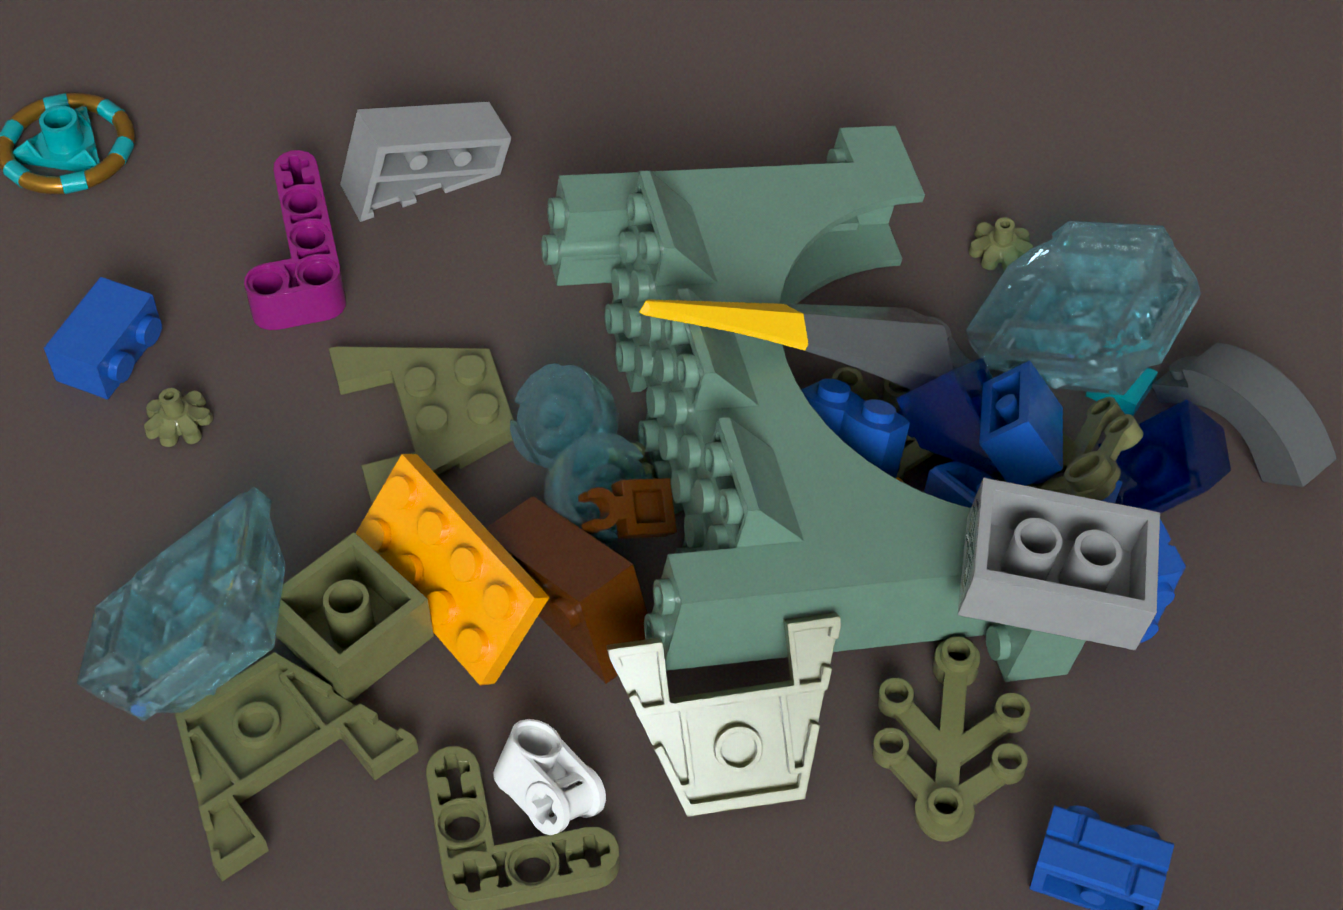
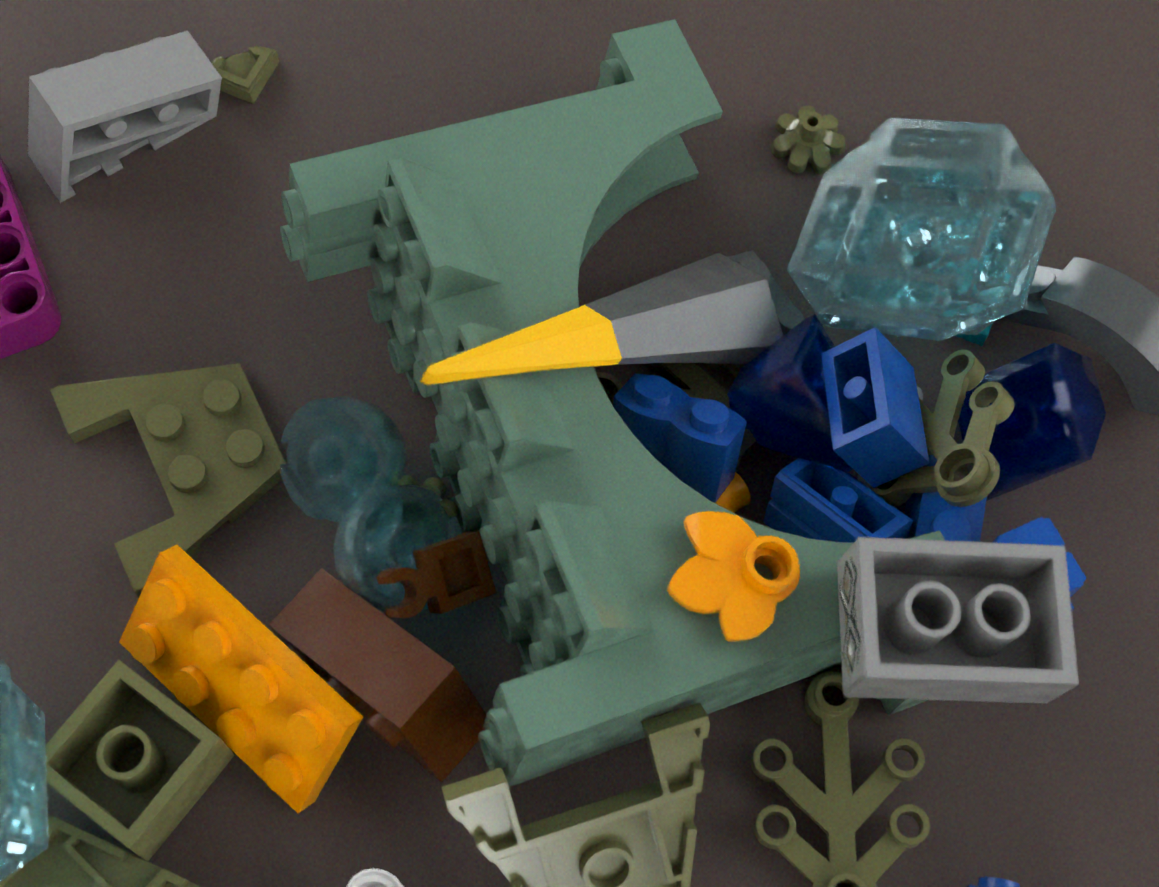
camera: 10 degrees left, 15 degrees up
(532, 146) = (246, 72): none -> olive tile
(878, 508) = (725, 578): none -> light orange plate

